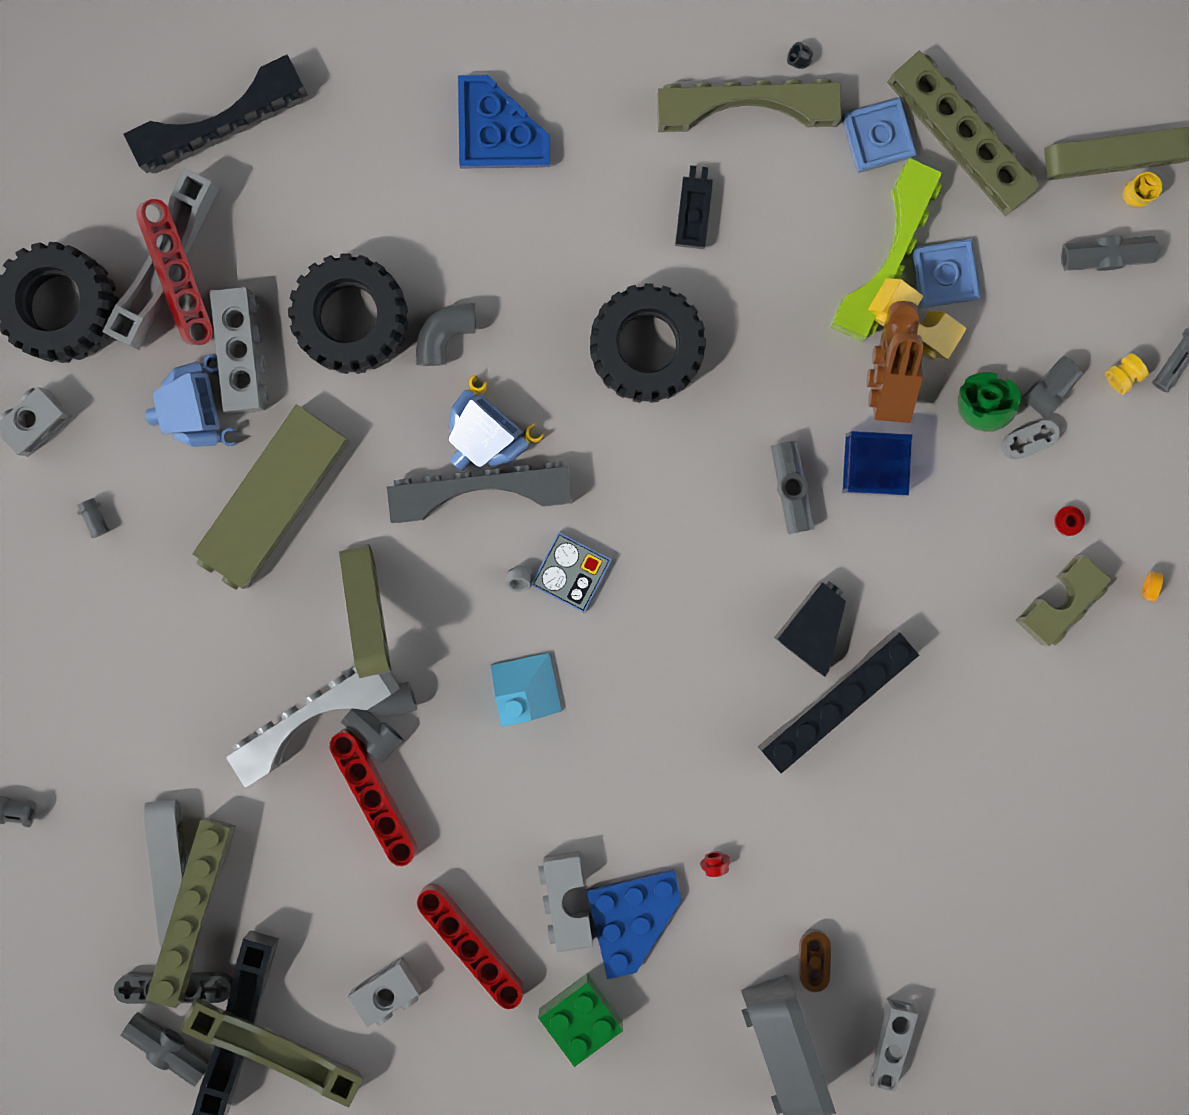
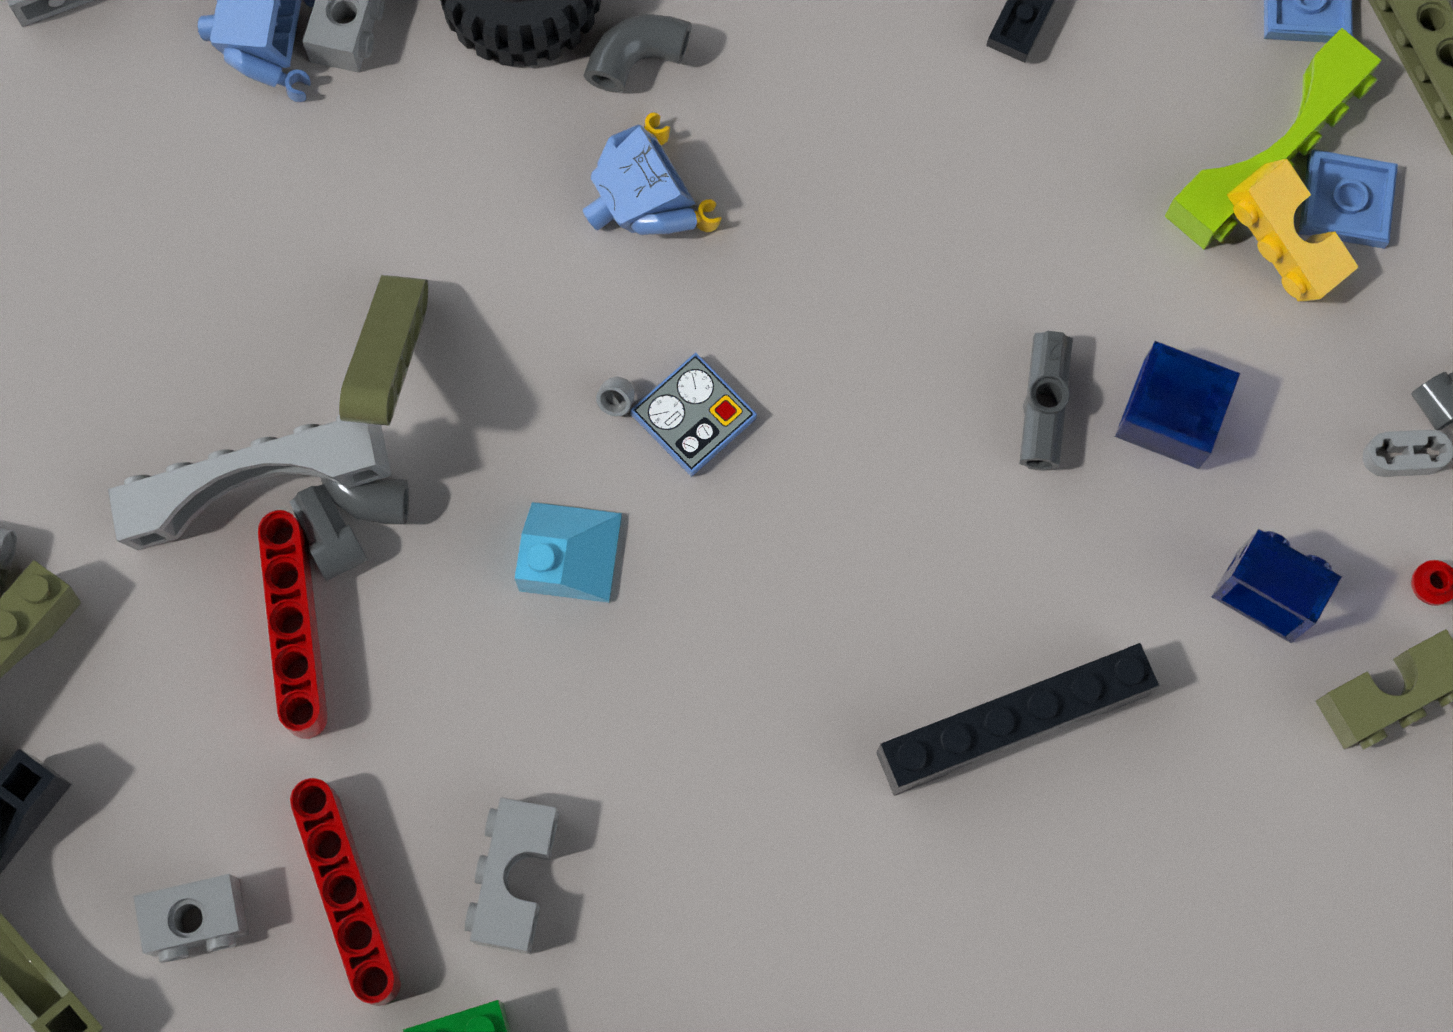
camera: 20 degrees right, 15 degrees down
(93, 518) = (71, 125): dark grey pin -> none
(270, 498) = (318, 176): olive brick -> none
(416, 501) = (519, 245): dark grey arch -> none
(631, 918) = (600, 940): blue plate -> none
(647, 302) = (914, 94): black tyre -> none
(715, 864) = (755, 898): red plate -> none
(815, 627) = (1014, 603): black slope -> none
(897, 365) = (1247, 270): dark orange brick -> none
(972, 564) = (1277, 585): none -> clear blue piece
(988, 401) = (1361, 376): green cylinder -> none

